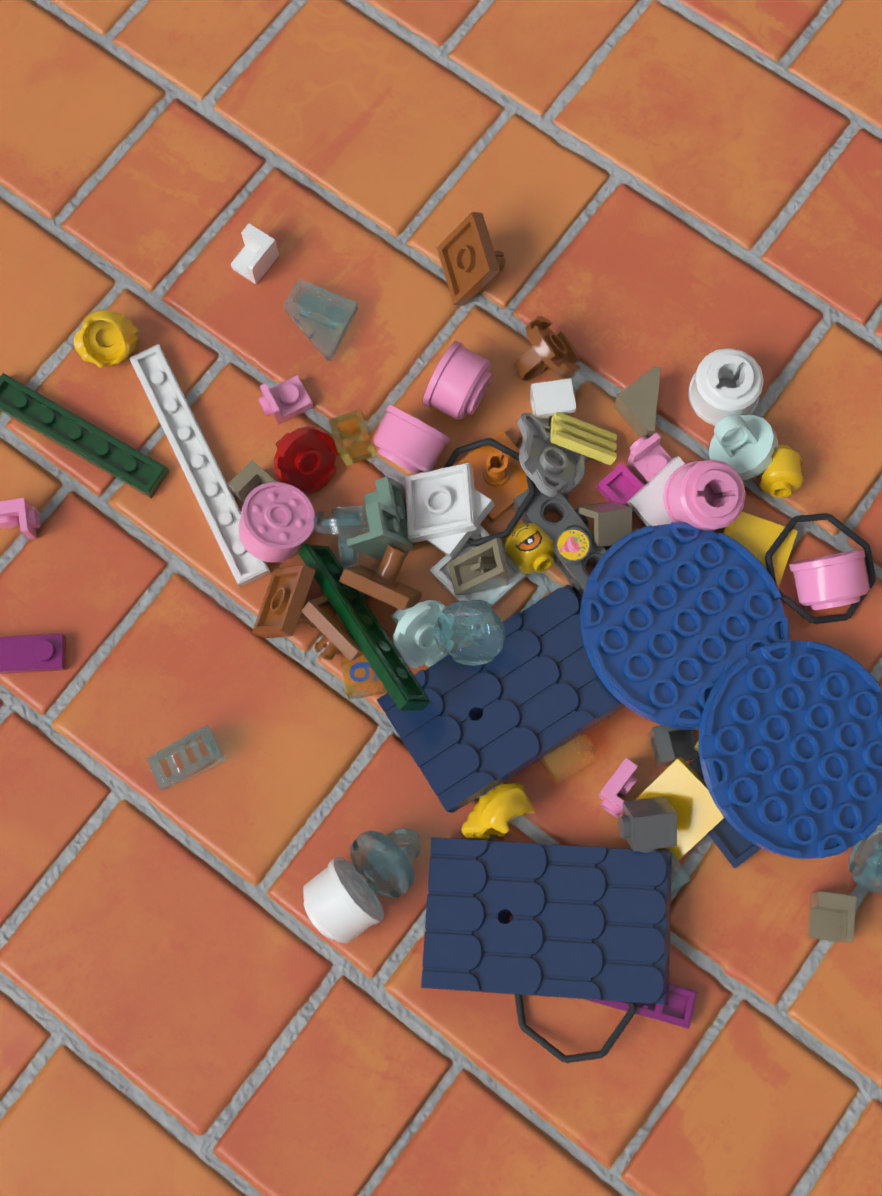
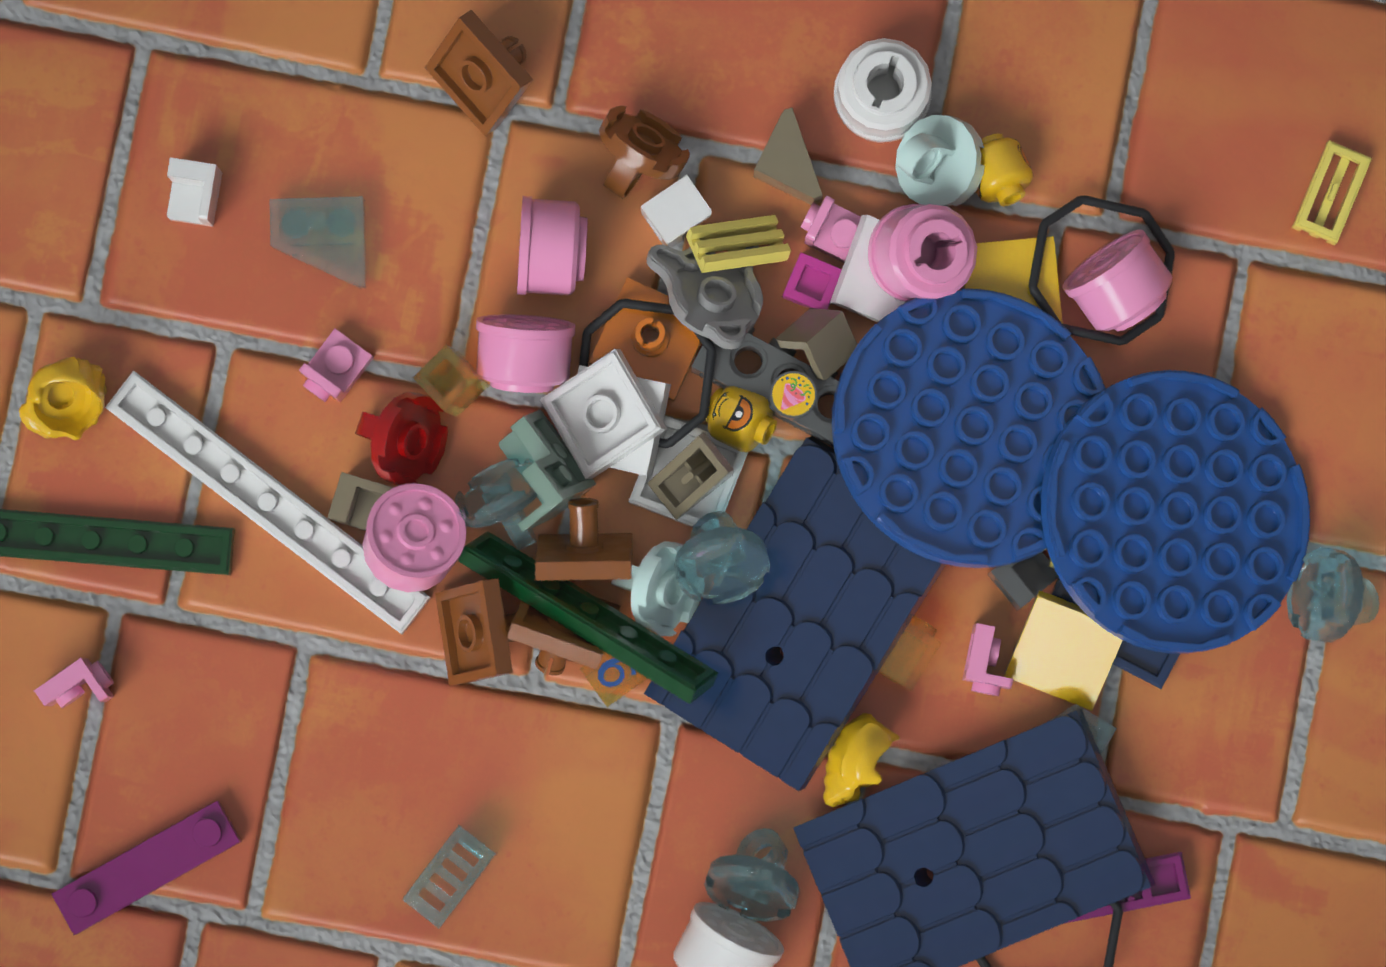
camera: 30 degrees left, 10 degrees up
(648, 824) = (1039, 690): dark grey brick -> none
(832, 917) = (1296, 691): dark tan panel -> none

